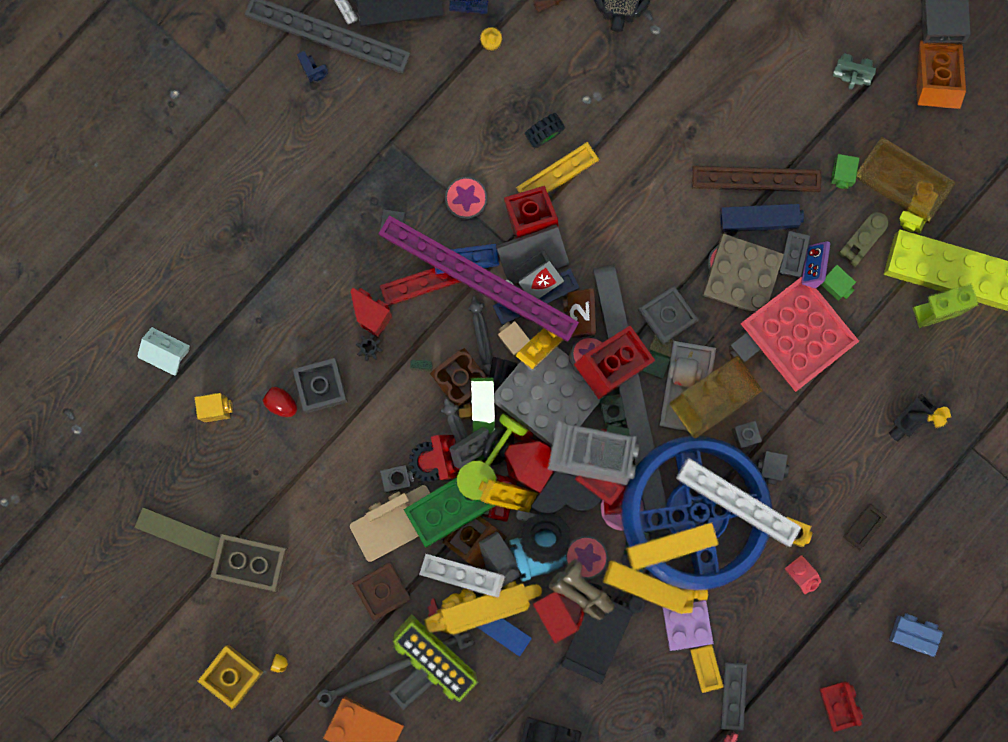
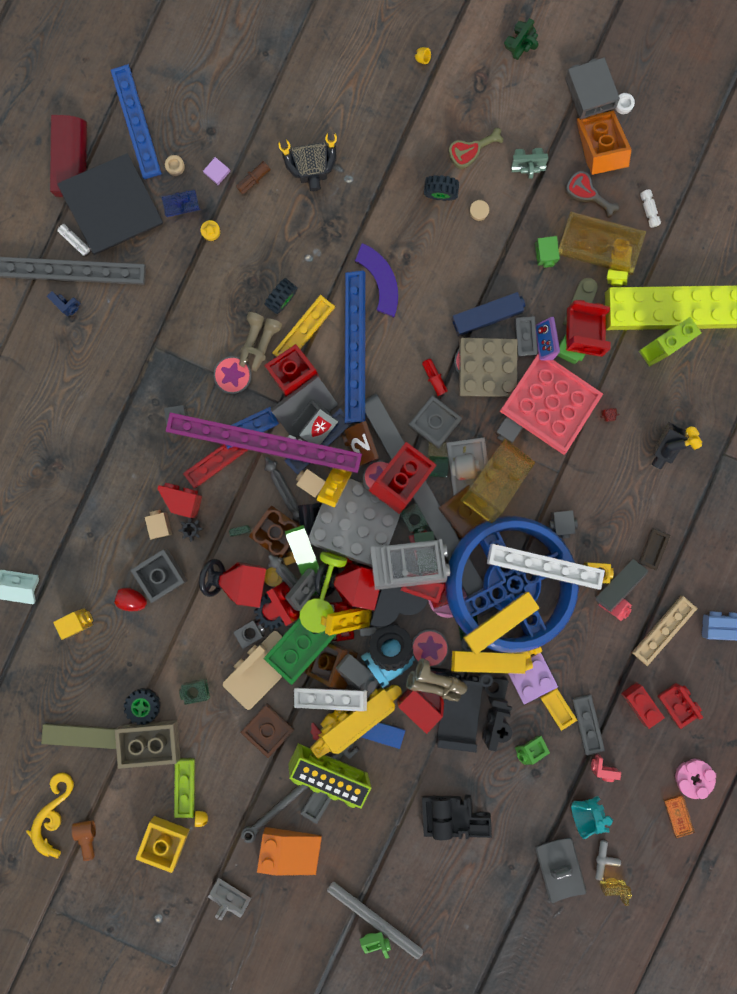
camera: 20 degrees left, 5 degrees up
(99, 639) = (55, 819): none -> yellow plant
(148, 639) = (85, 833): none -> dark orange pin
(248, 518) = (137, 711): none -> black wheel
(272, 625) = (184, 788): none -> lime tile
(327, 523) = (200, 685): none -> clear green brick
(336, 332) = (158, 524): none -> tan brick
(404, 420) = (240, 582): none -> red piece
(440, 426) = (272, 577): none -> yellow plate
(509, 150) = (256, 322): none -> dark tan piece
(606, 208) = (354, 347): none -> blue tile
(635, 651) = (496, 716): none -> black plate
(661, 145) = (384, 278): none -> dark purple tile
(663, 704) = (532, 751): none -> bright green bracket
(664, 421) = (460, 515): none -> reddish brown tile
(682, 267) = (434, 377): none -> red axle
(746, 435) = (533, 503): dark grey brick -> none
(751, 69) = (441, 188): none -> black wheel
(756, 178) = (474, 281): reddish brown tile -> none
(785, 105) = (479, 210): none -> tan tile
(788, 41) = (465, 153): none -> olive piece
(800, 692) = (642, 705): none -> red brick
(816, 553) = (621, 585): none -> dark grey tile
(849, 619) = (664, 630): none -> tan tile
(859, 366) = (609, 414): none -> clear red plate
(862, 265) = (587, 328): none -> red panel
(902, 117) = (581, 189): none -> dark grey piece
(970, 159) = (650, 208): none -> white axle
(976, 41) = (625, 103): none -> white tile

